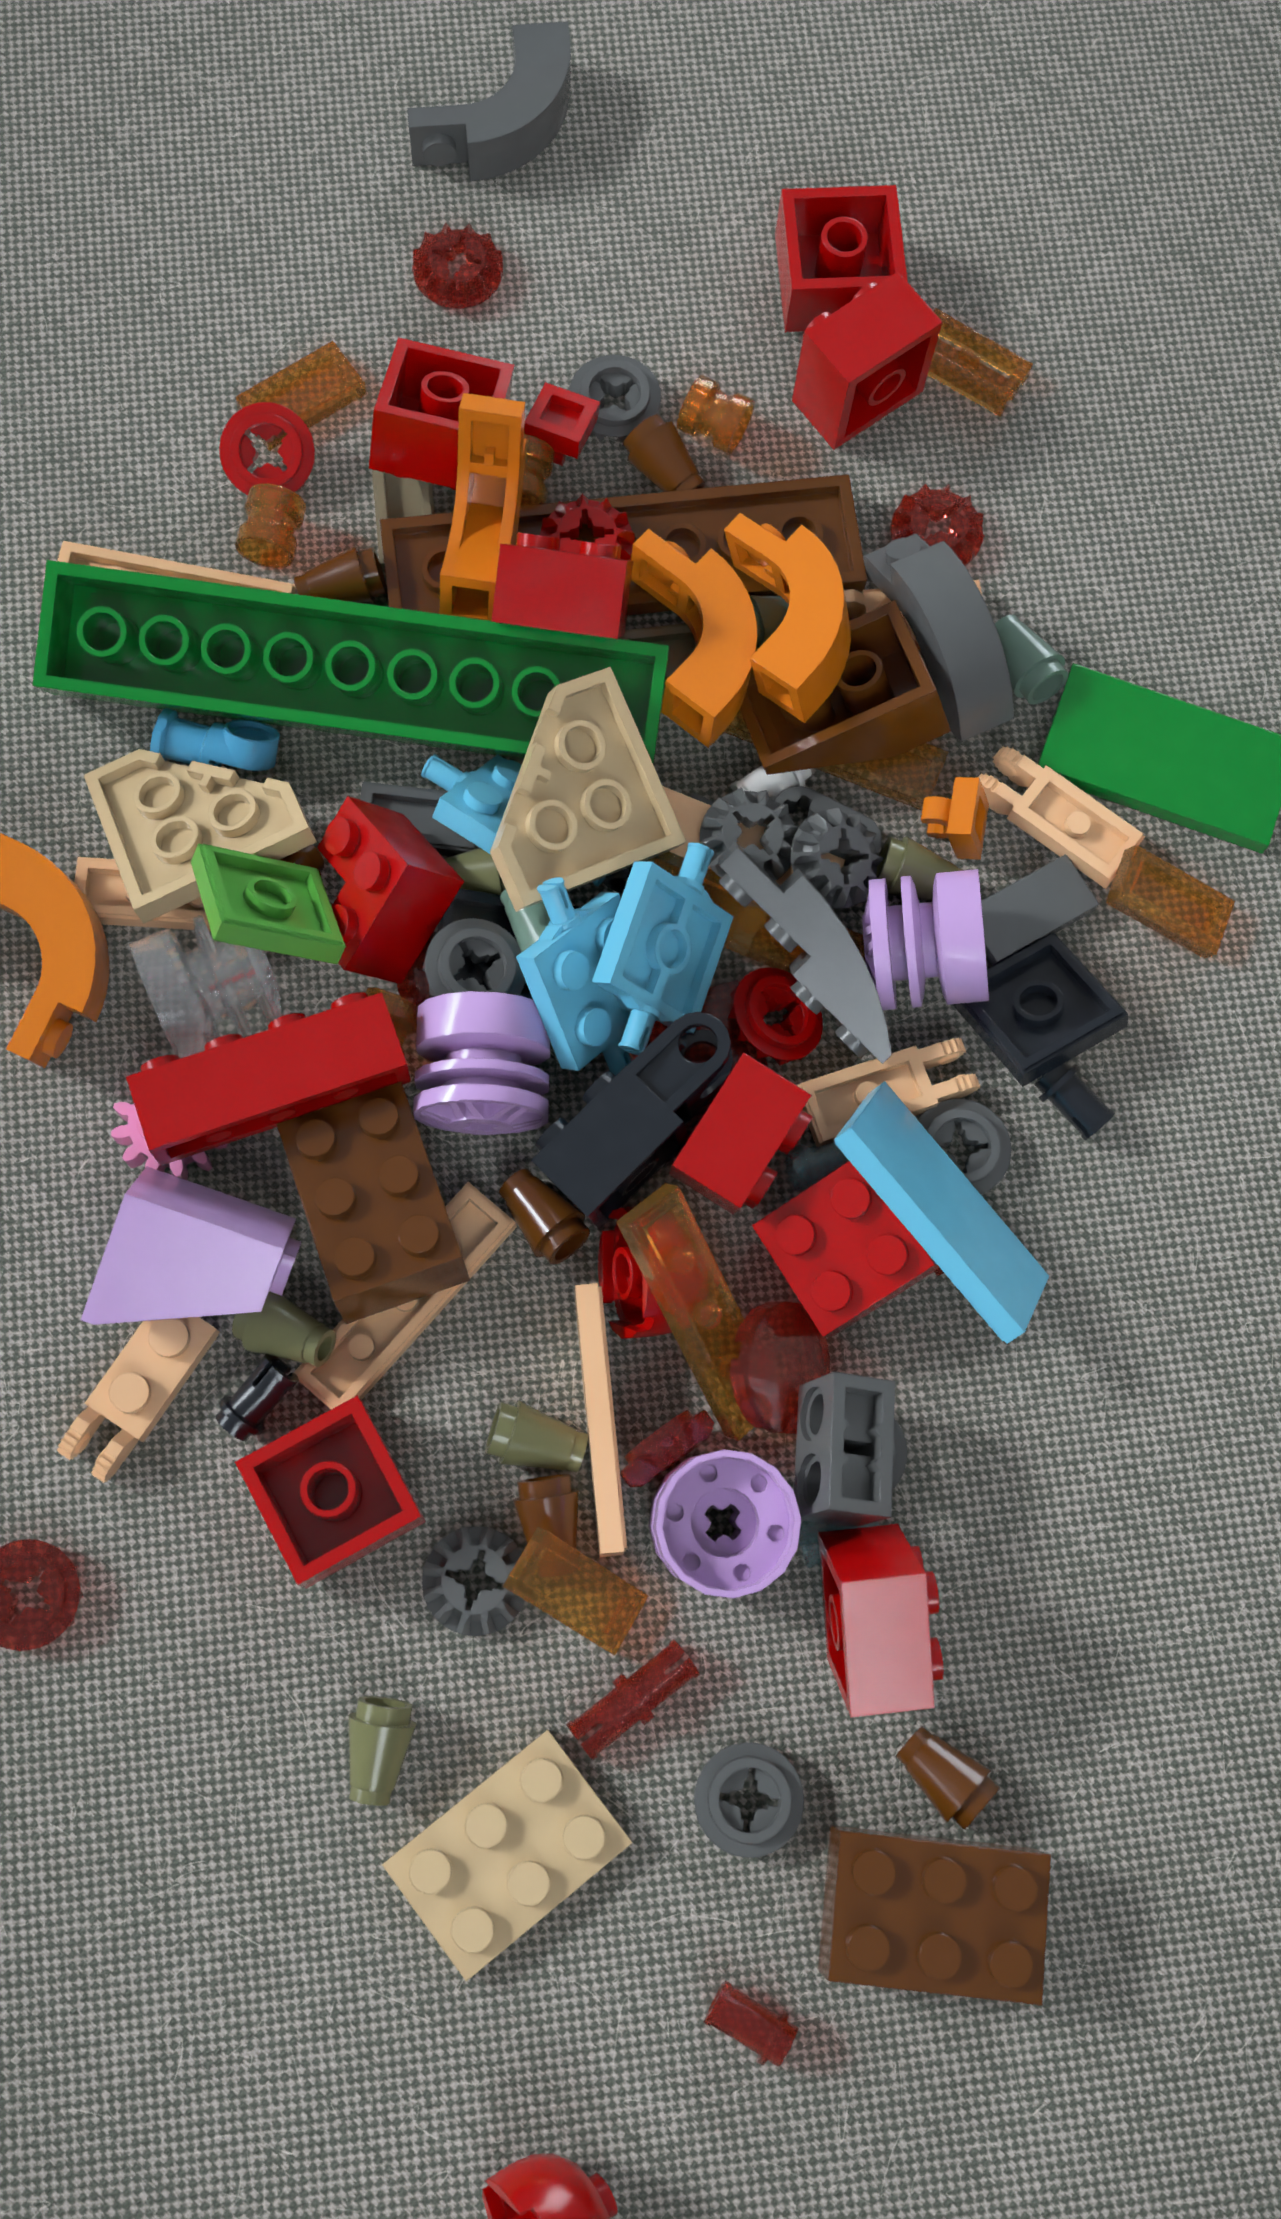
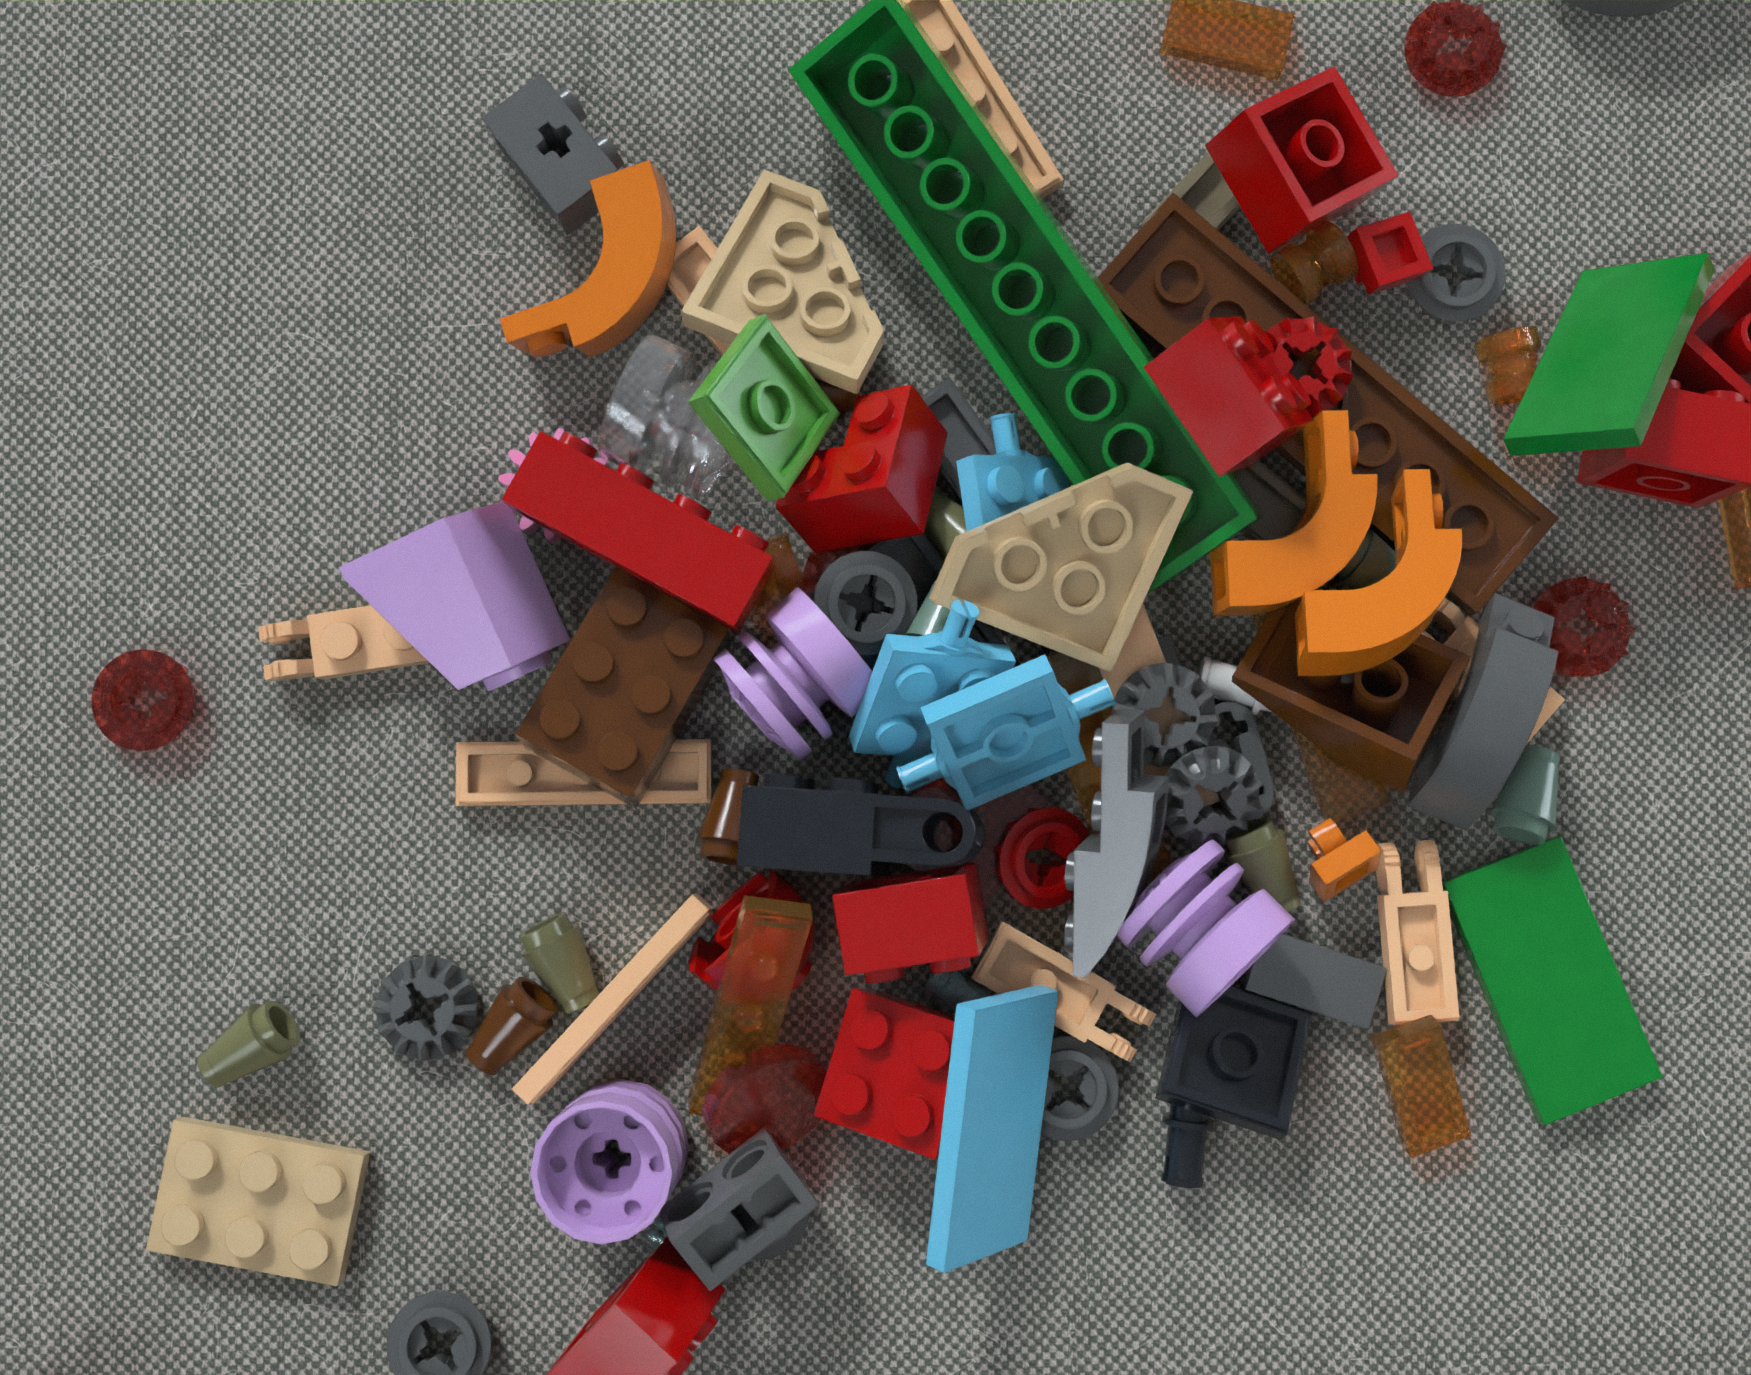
camera: 55 degrees right, 10 degrees up
(236, 743) = (875, 242): dark azure connector -> none
(255, 1399) = (423, 733): black pin -> none
(267, 422) = (1130, 34): red gear -> none
(272, 520) = (1091, 115): clear orange wheel -> none
(284, 1332) = (479, 718): olive cone -> none
(330, 1492) = (388, 853): red brick -> none
(346, 577) = (1097, 211): reddish brown cone -> none
(485, 502) = (1246, 270): orange arch -> none
(575, 1590) = (473, 1091): clear orange tile -> none
(633, 1699) = (438, 1197): clear red pin -> none
(662, 456) = (1436, 359): reddish brown cone -> none
(666, 1447) = (633, 1067): clear red gear -> none
(770, 339) = (1610, 357): none -> green tile

